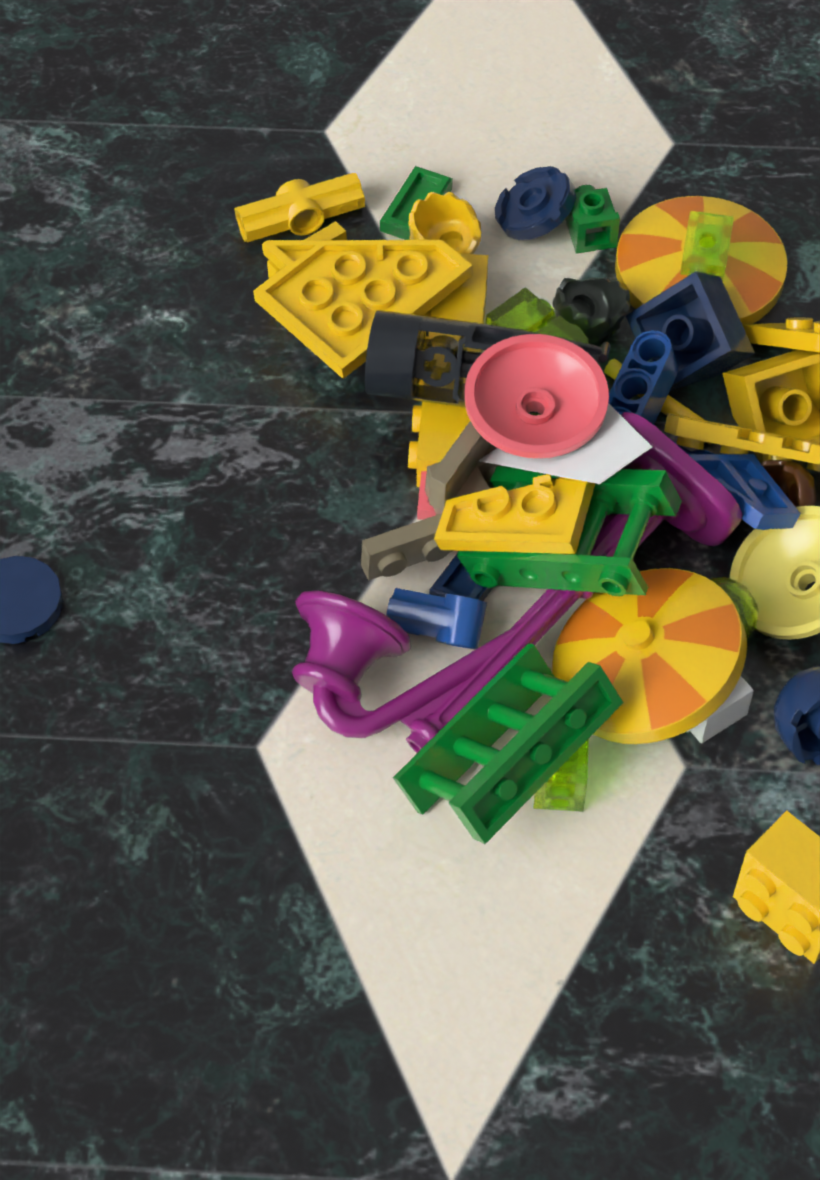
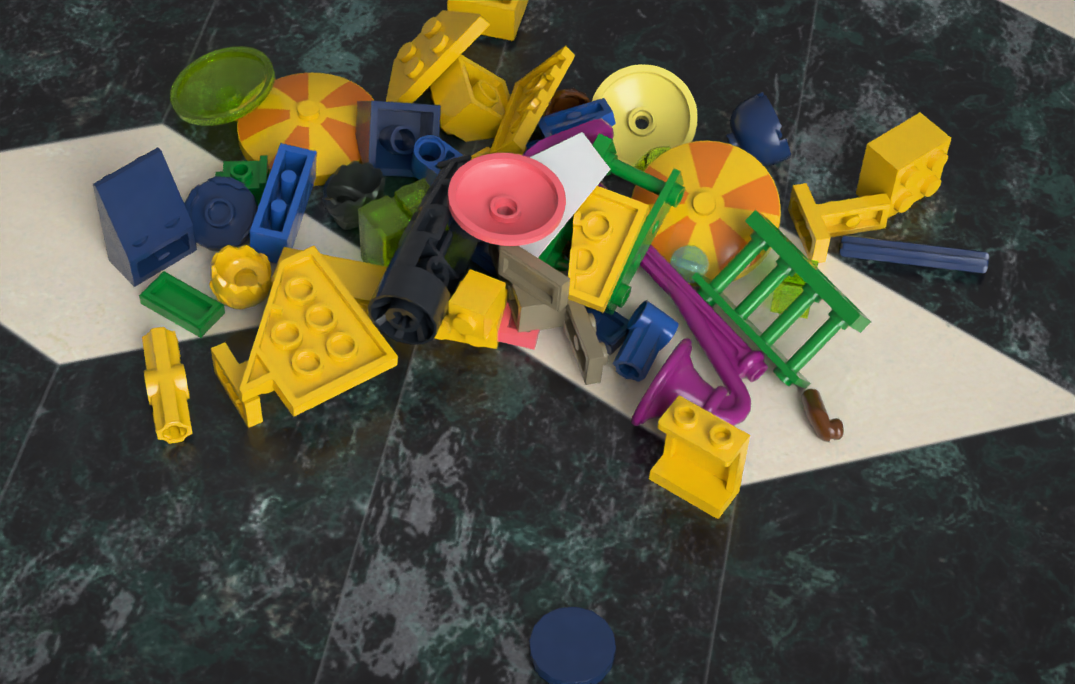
camera: 85 degrees left, 5 degrees down
(253, 667) = (700, 457): none -> yellow panel
(361, 816) = (818, 417): none -> reddish brown arm
(422, 424) = (476, 304): none -> yellow brick
(487, 127) = (143, 218): none -> dark blue slope
(553, 246) = (283, 201): none -> blue brick
(560, 644) = (688, 261): none -> clear light blue tile
(668, 930) = (914, 254): none -> dark blue axle
(689, 795) = (834, 218): none -> yellow bracket
(707, 244) = (328, 101): clear neon green brick -> none
(717, 165) = (222, 86): none -> clear neon green dish

